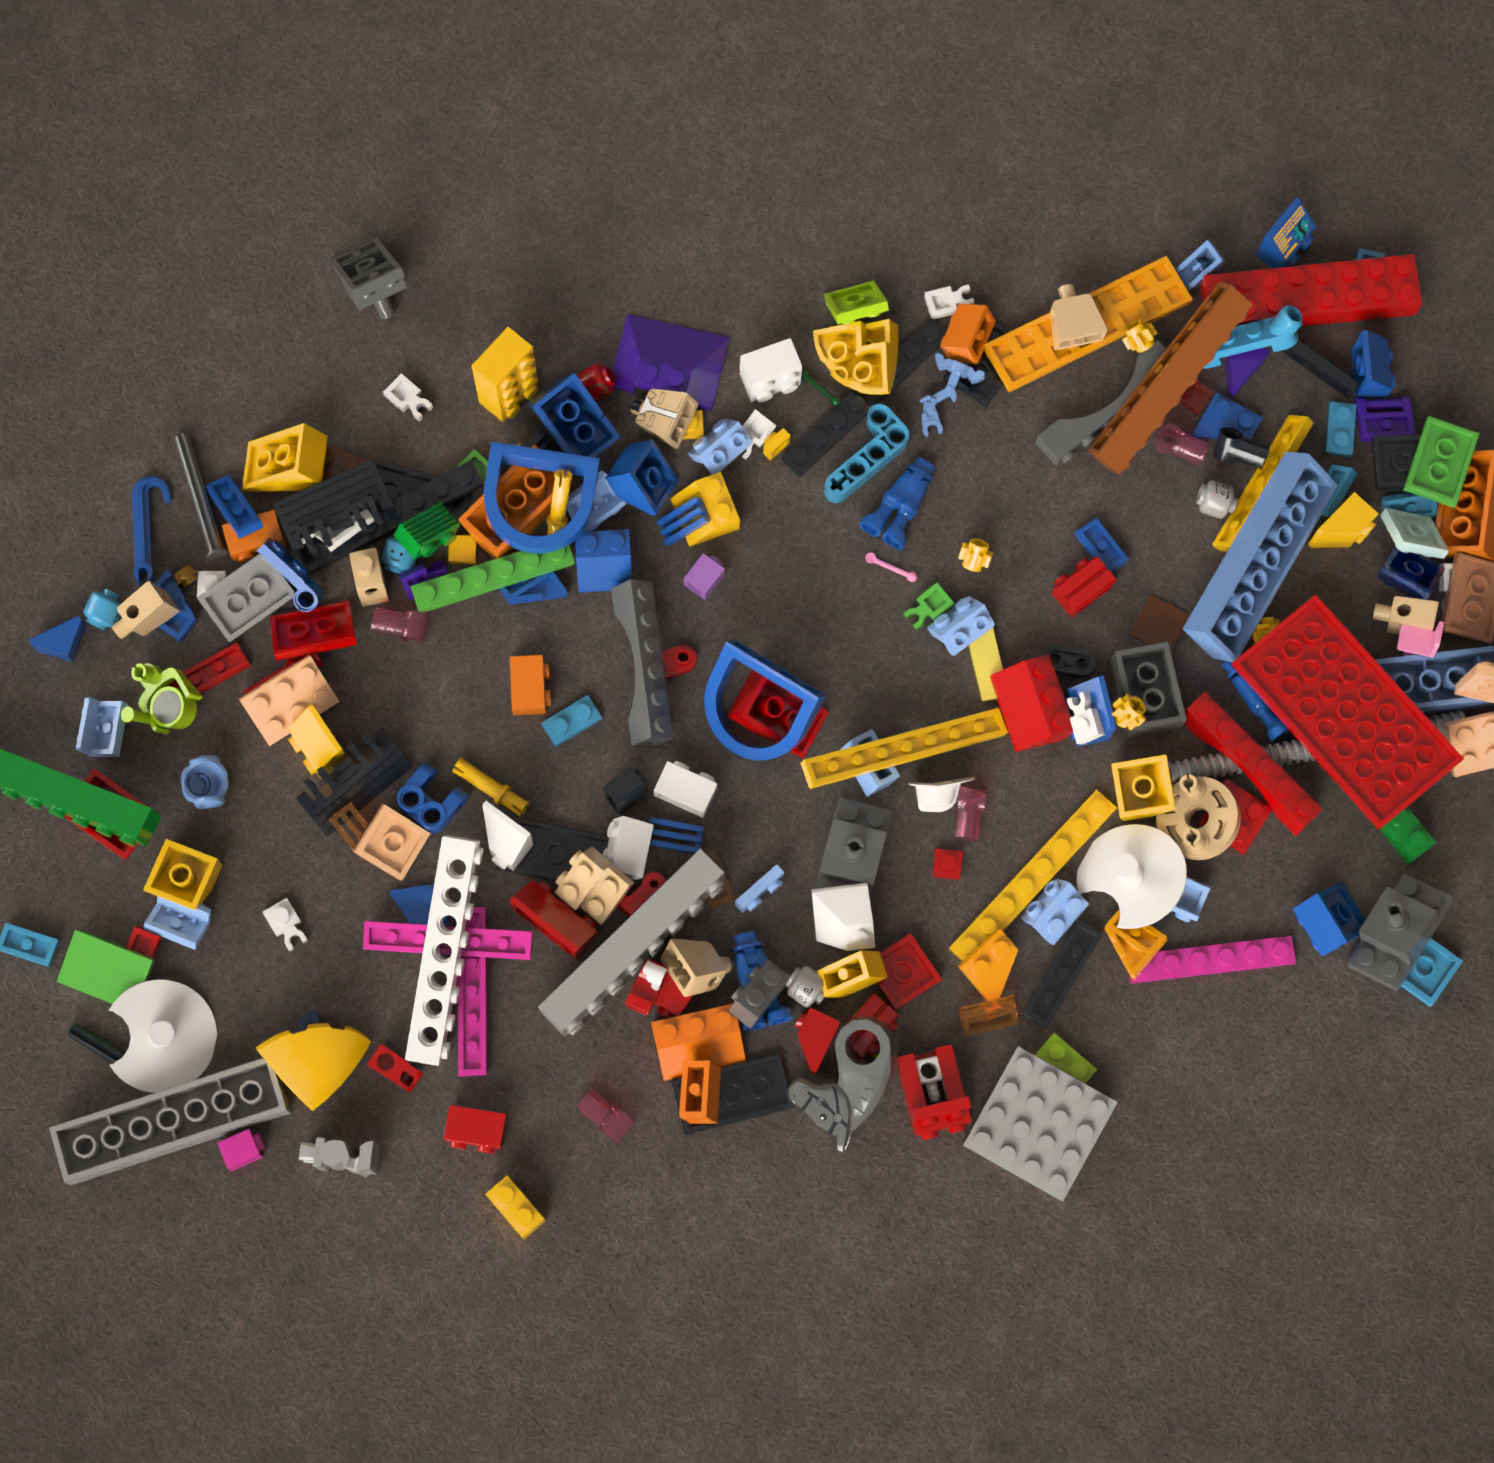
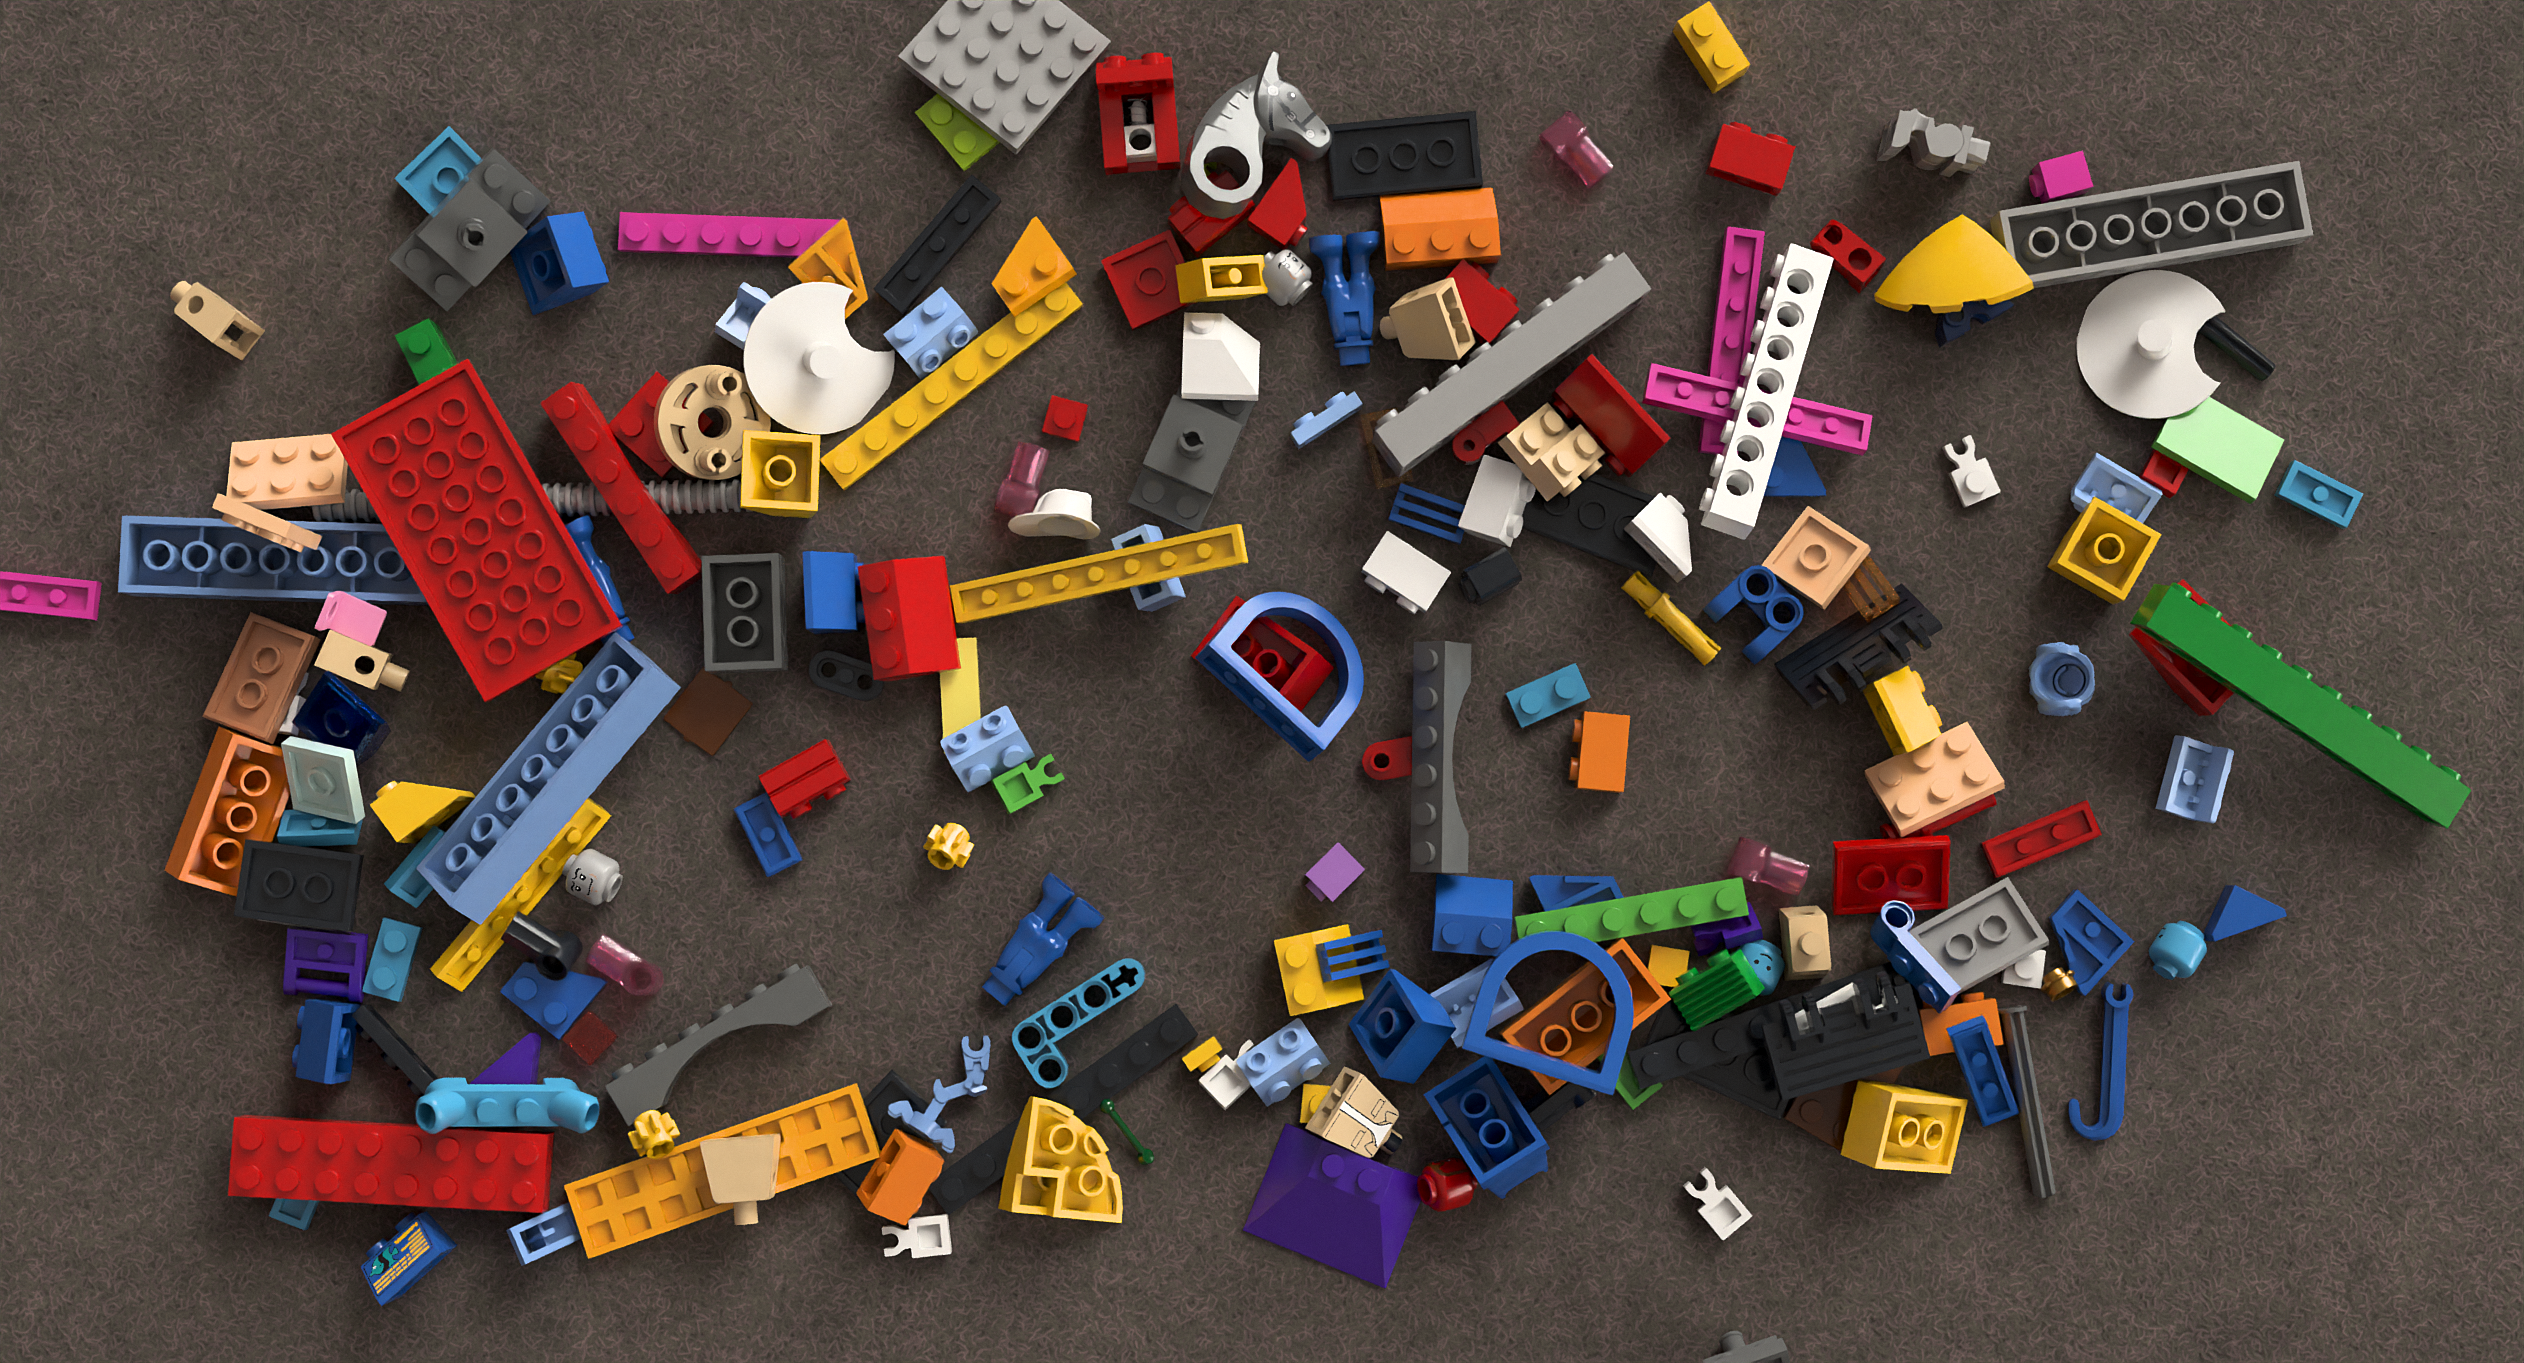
camera: 170 degrees left, 10 degrees up
(145, 611) = (2122, 929): tan torso -> none
(163, 705) = (2106, 791): lime piece -> none
(506, 375) = (1578, 1197): yellow brick -> none
(557, 518) = (1529, 984): yellow pin -> none
(646, 987) = (1501, 298): red leg -> none
(700, 1092) = (1449, 152): orange brick -> none
(759, 993) = (1352, 264): dark grey brick -> none
(771, 370) = (1194, 1159): white brick -> none
(856, 302) = (1053, 1250): lime plate -> none
(871, 558) = (1043, 833): bright pink hinge -> none
(966, 1019) = (1049, 206): clear orange tile -> none
(1086, 722) = (842, 572): white plate -> none
(1129, 711) = (780, 572): yellow gear -> none
(1170, 377) = (622, 1058): dark orange brick -> none
(1441, 461) = (261, 875): bright green tile -> none

